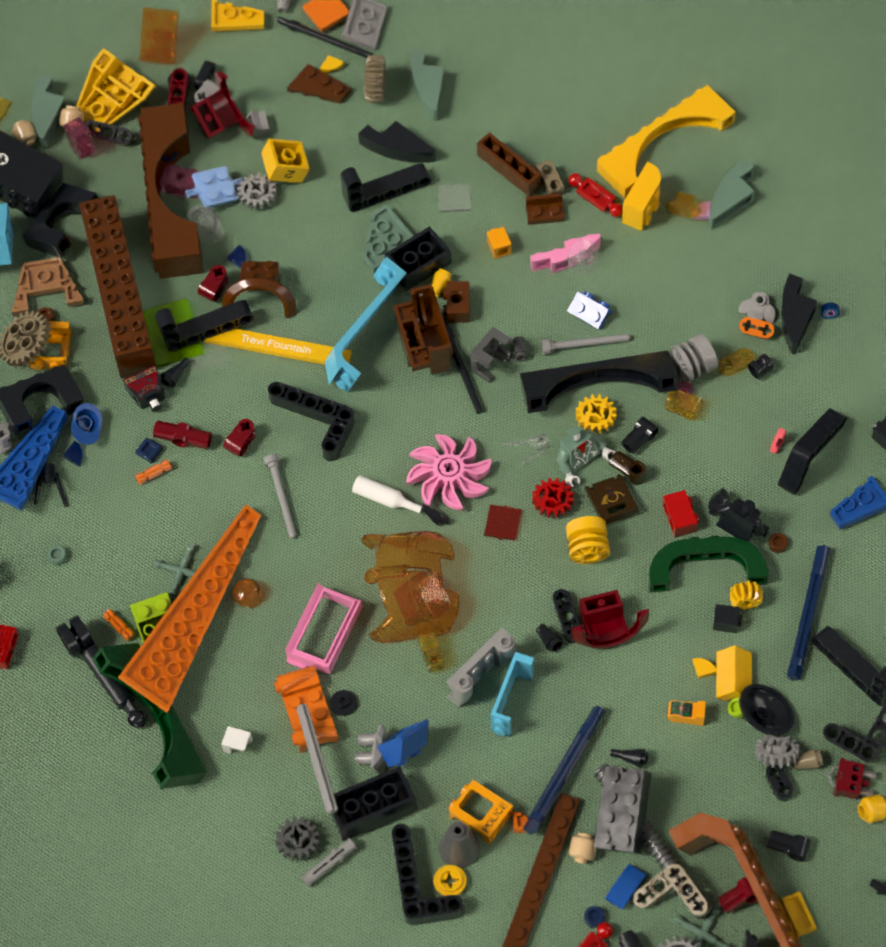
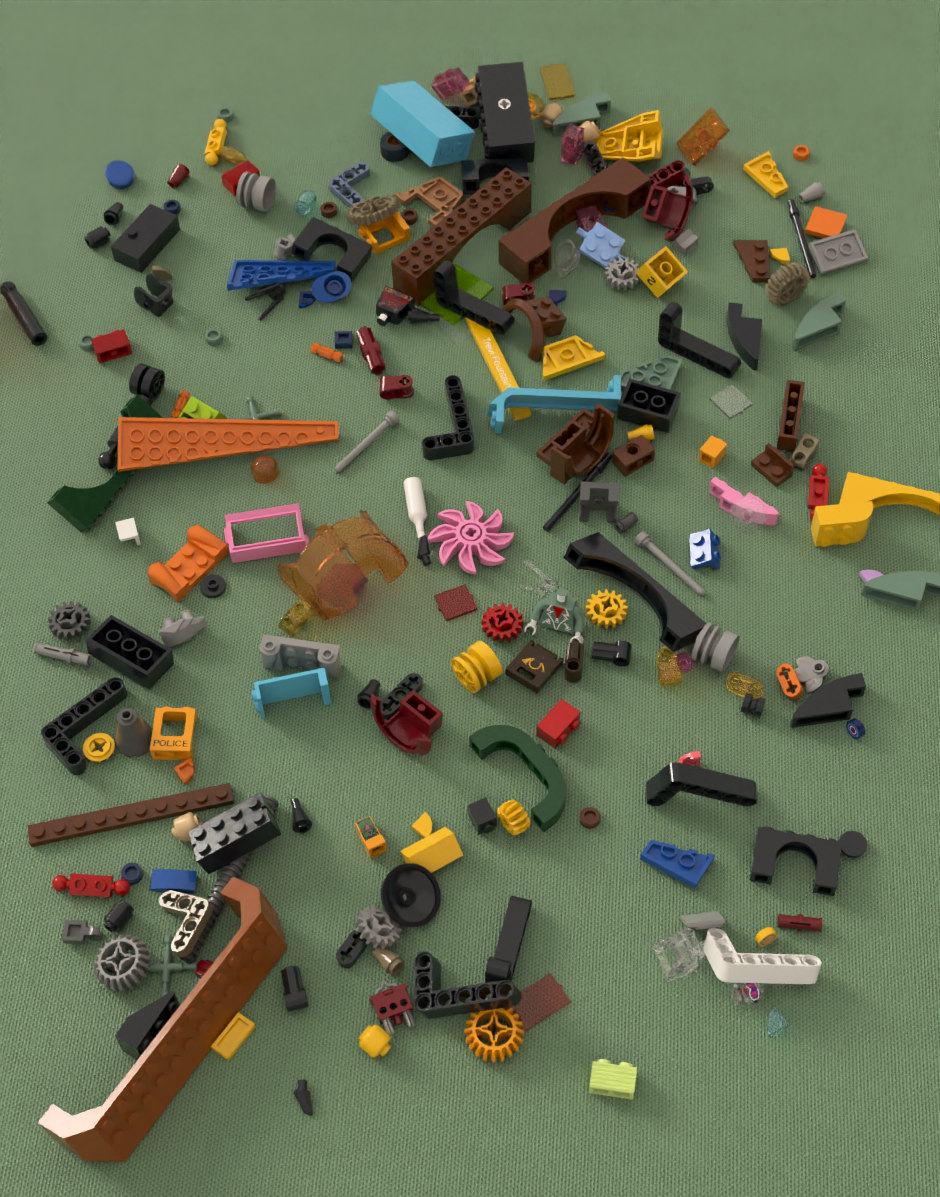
camera: 55 degrees right, 5 degrees down
(312, 287) = (568, 356): none -> yellow wing
(317, 759) = (138, 588): light grey axle -> none
(404, 744) = (193, 642): blue slope -> none
(563, 770) = (250, 772): dark blue piece -> none
(684, 205) = (862, 560): clear yellow piece -> none
(737, 518) = (580, 767): black torso -> none
(808, 613) = (537, 879): dark blue piece -> none

